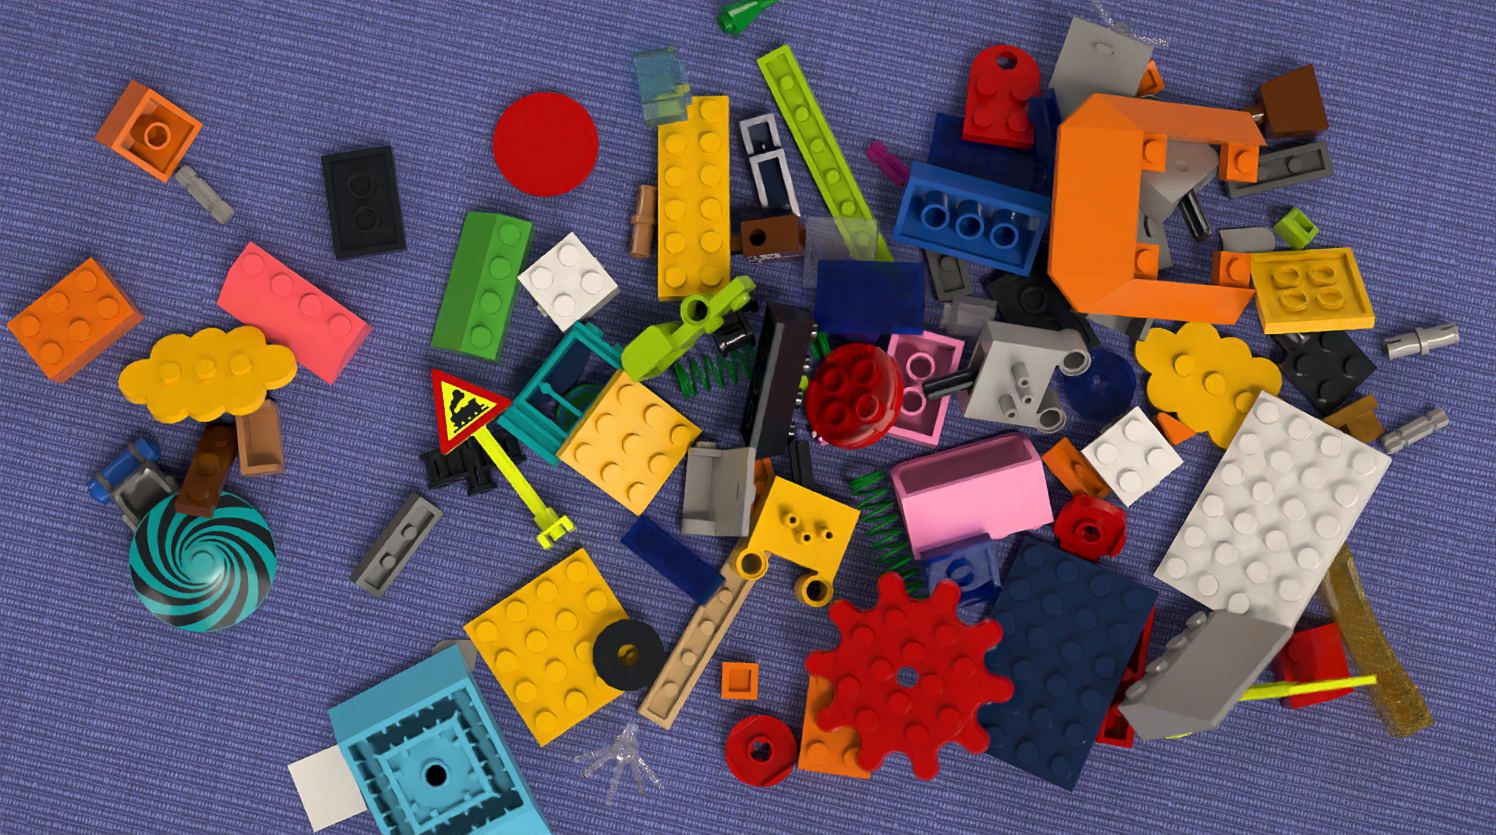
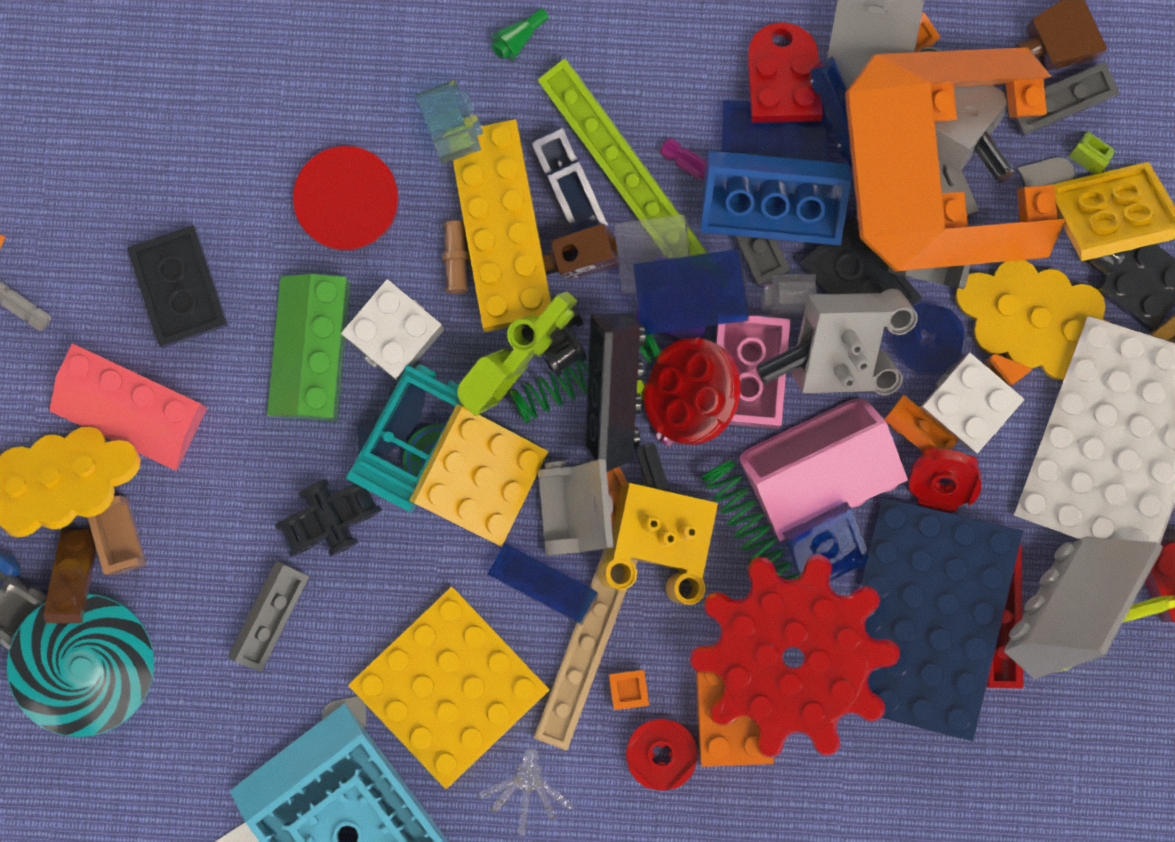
camera: 10 degrees left, 0 degrees up
(464, 412) = (313, 473): piece -> none
(608, 663) = (495, 692): black tile -> none

